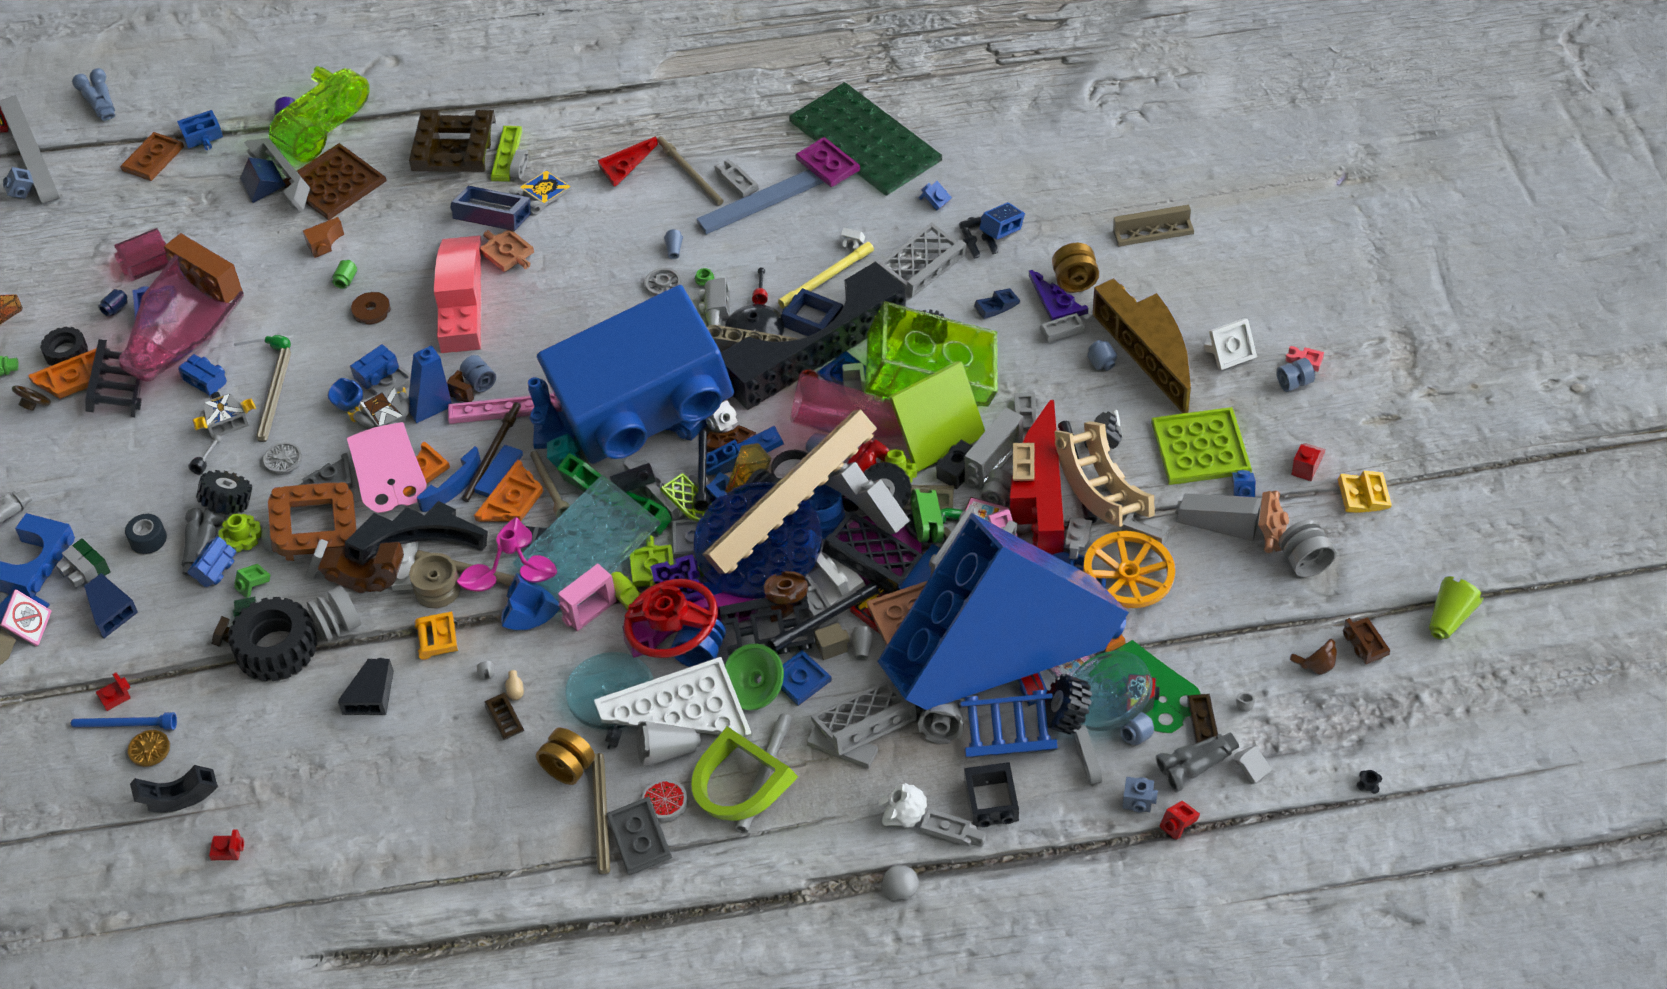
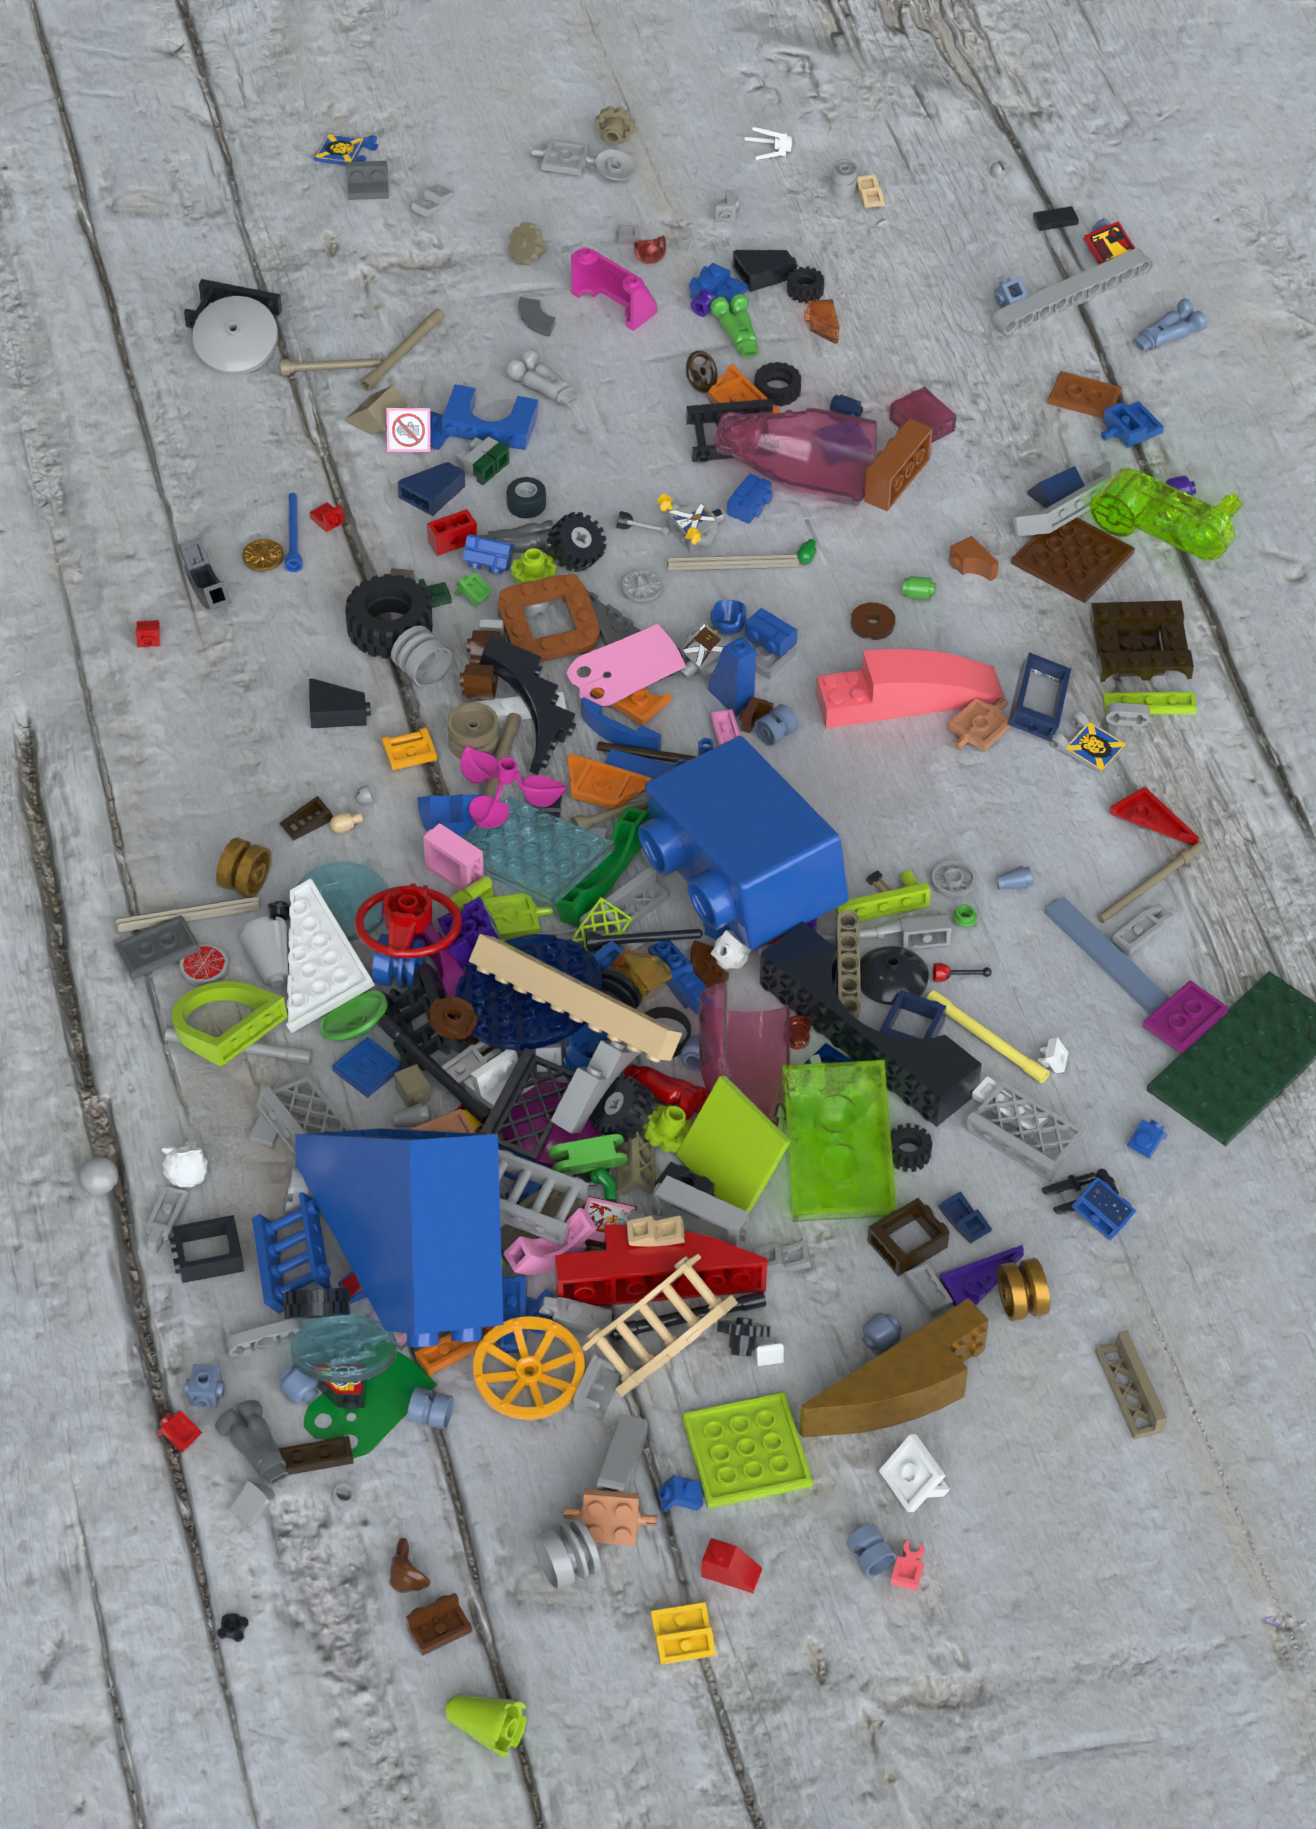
camera: 80 degrees right, 0 degrees up
(177, 587) = (451, 531): none -> red brick
(634, 478) = (620, 875): black hinge -> none
(1022, 347) = (891, 1253): none -> dark brown window
(1165, 636) = (430, 1408): none -> sand blue wheel

